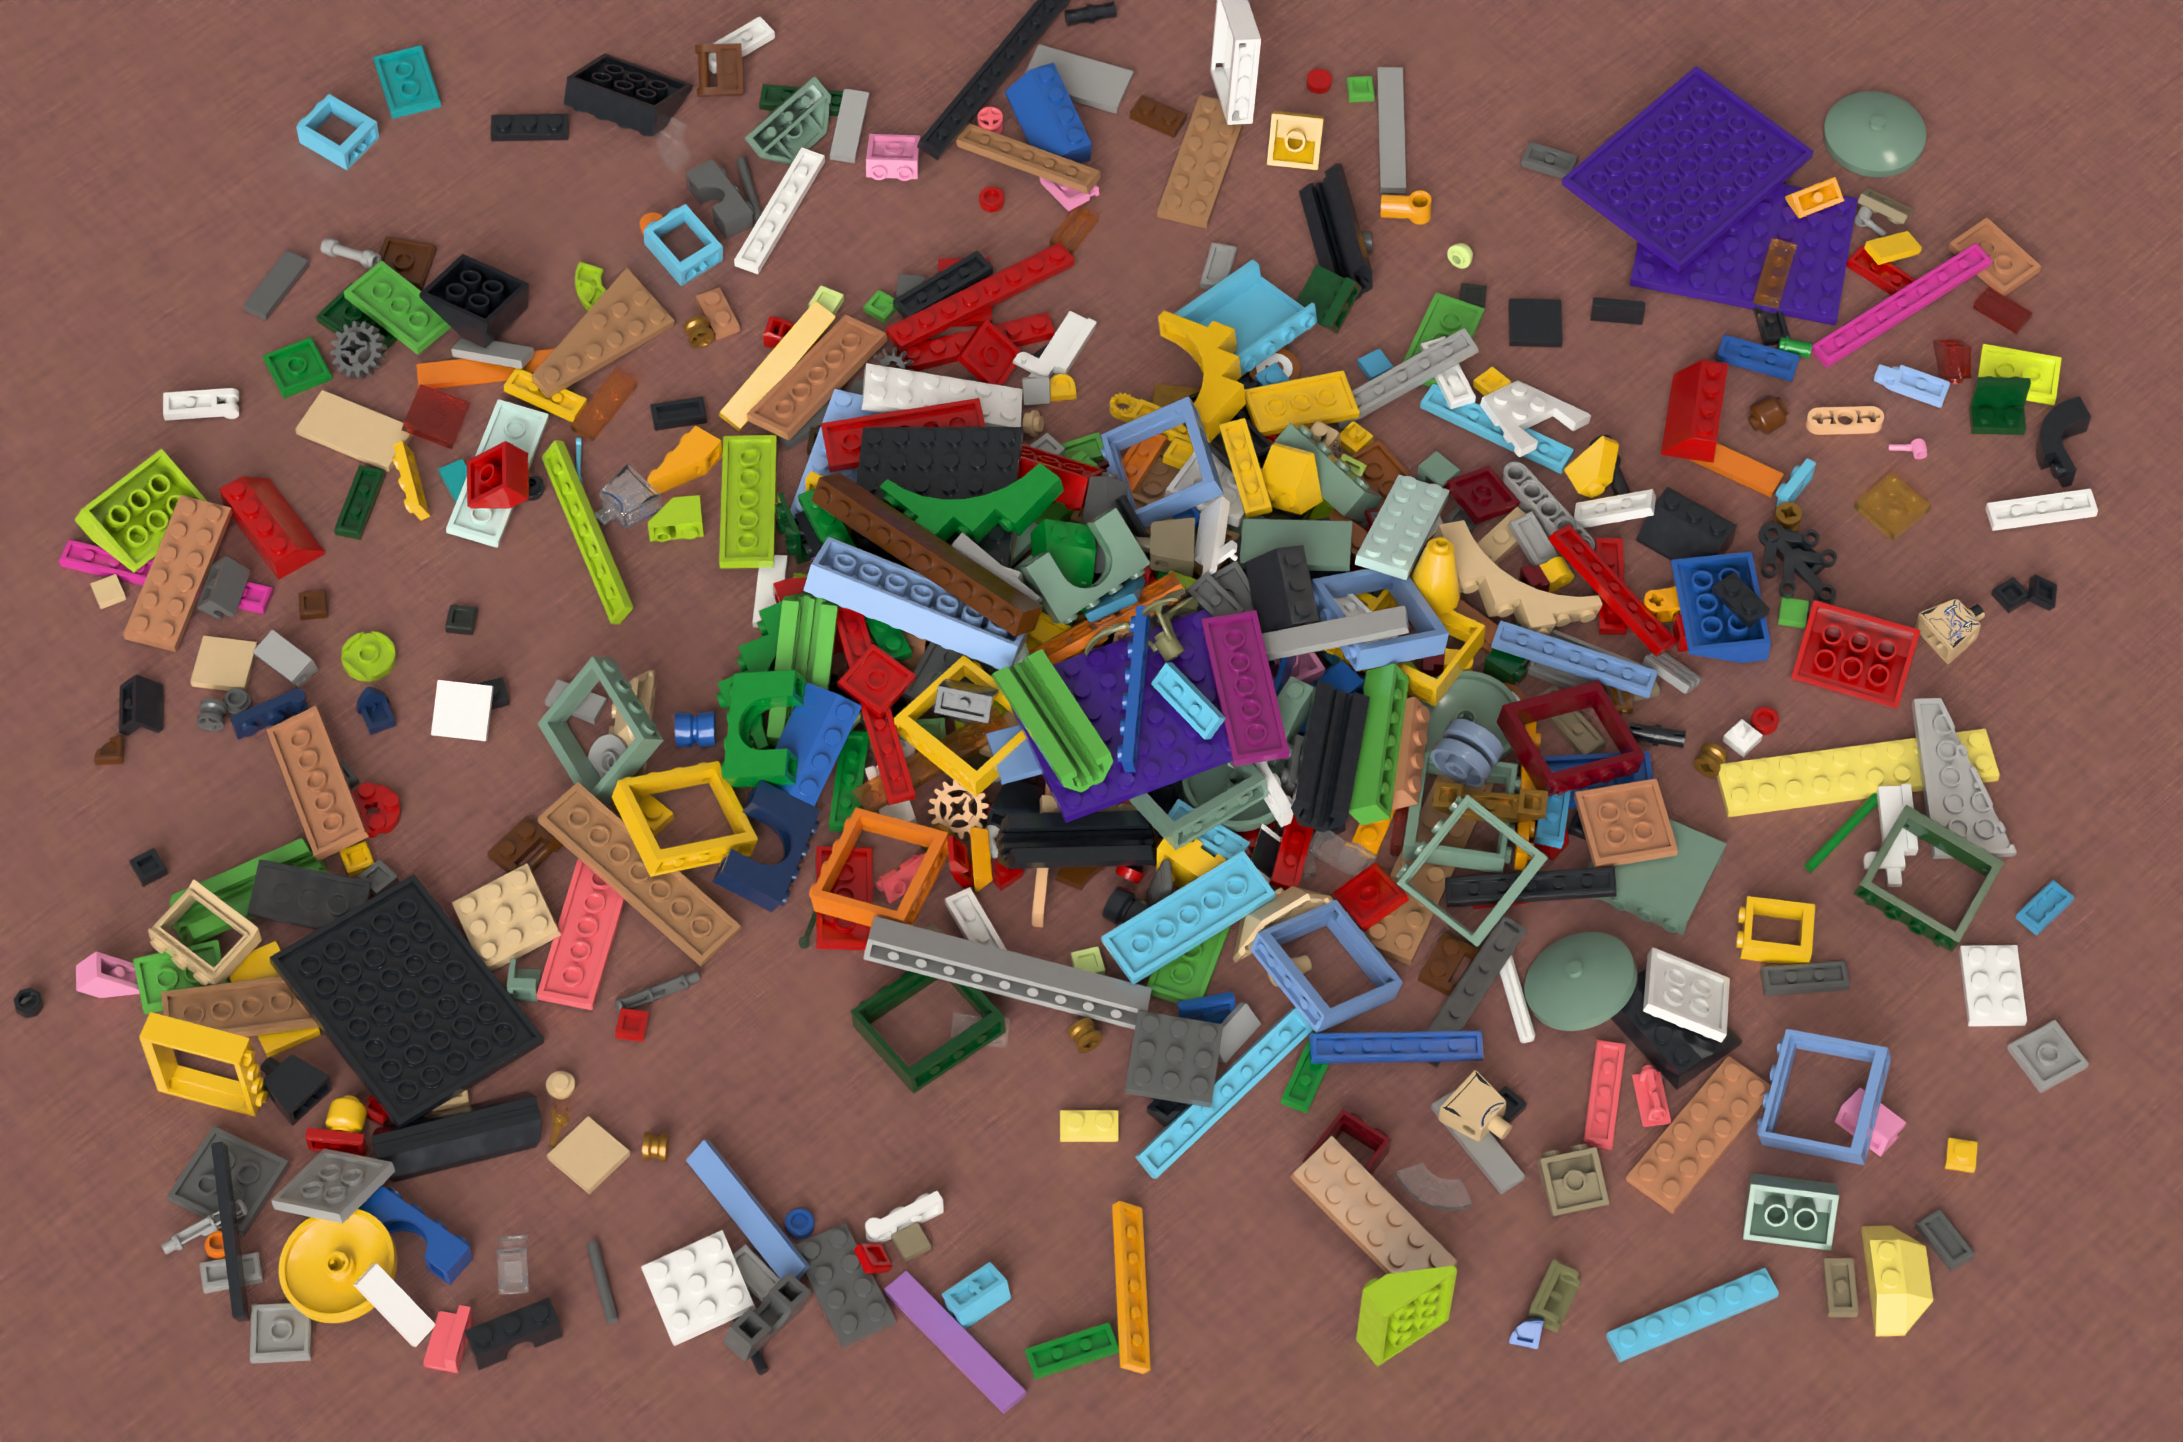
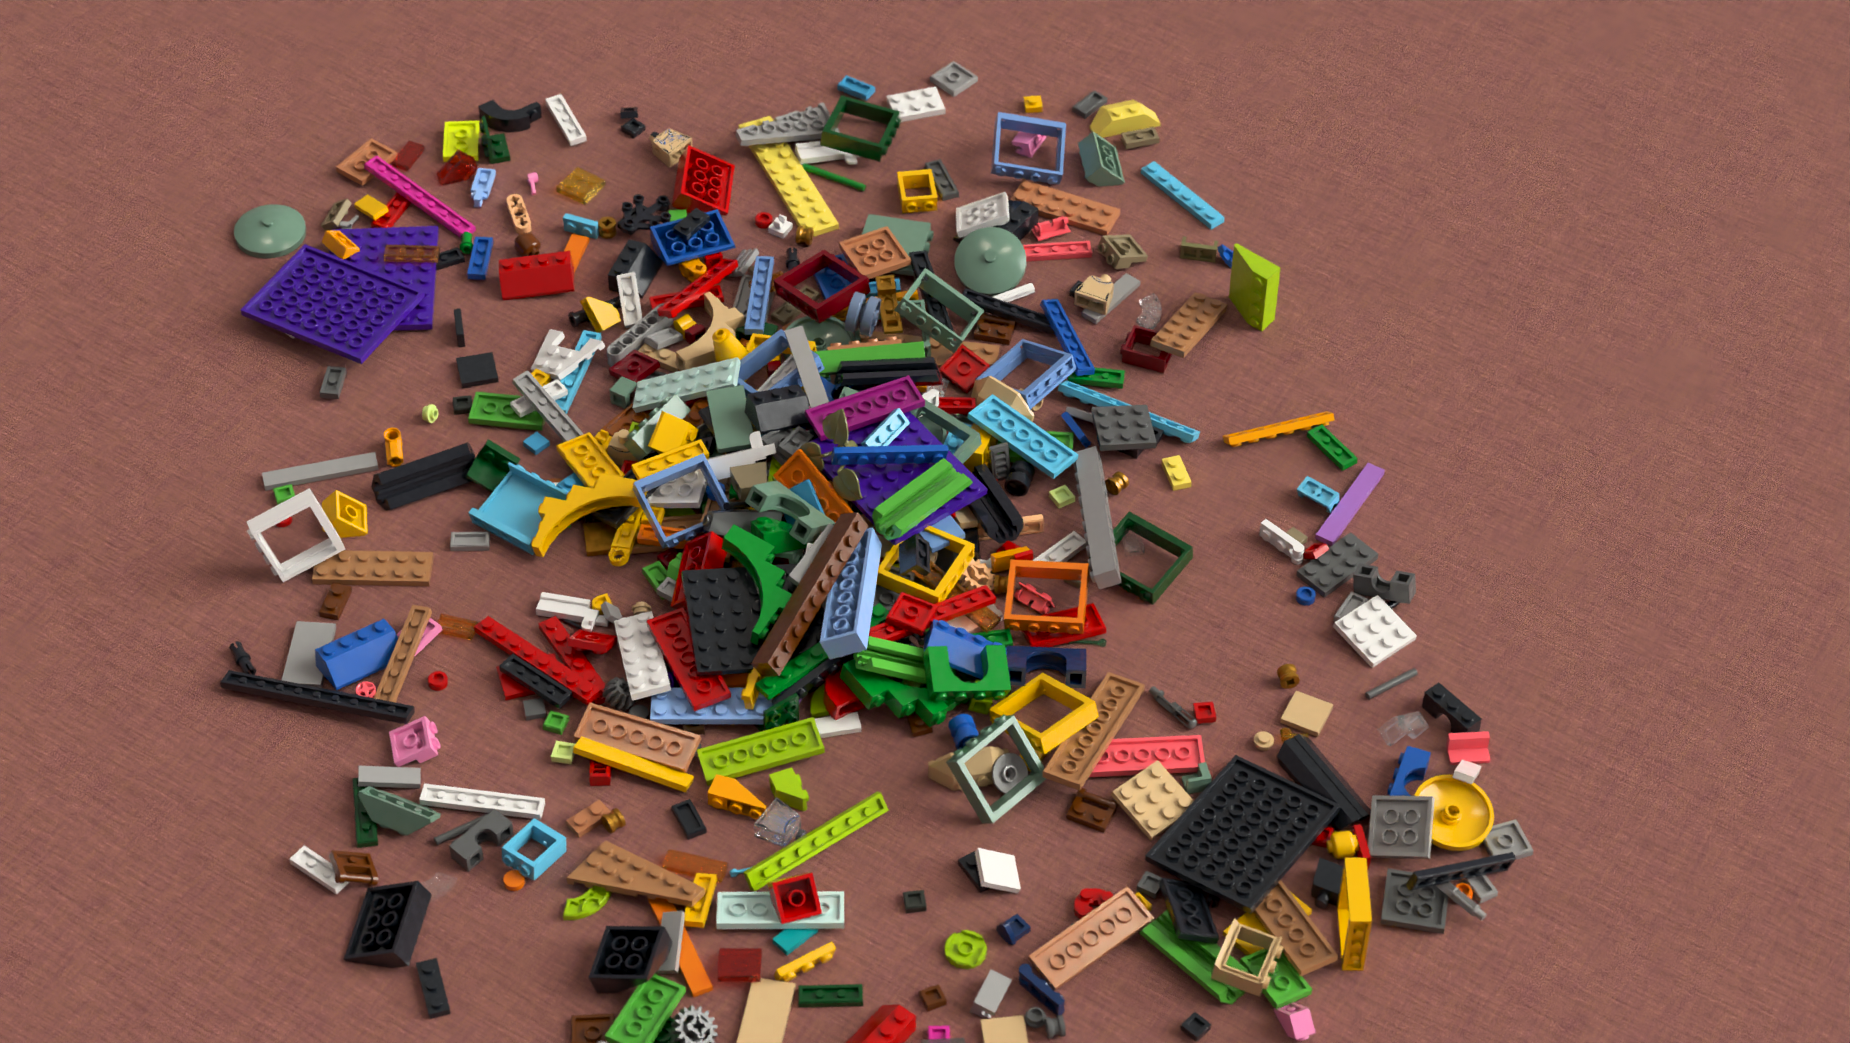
camera: 105 degrees left, 10 degrees down
(589, 708) = (960, 814): light grey tile -> none
(747, 1211) = (1312, 619): medium blue tile -> none

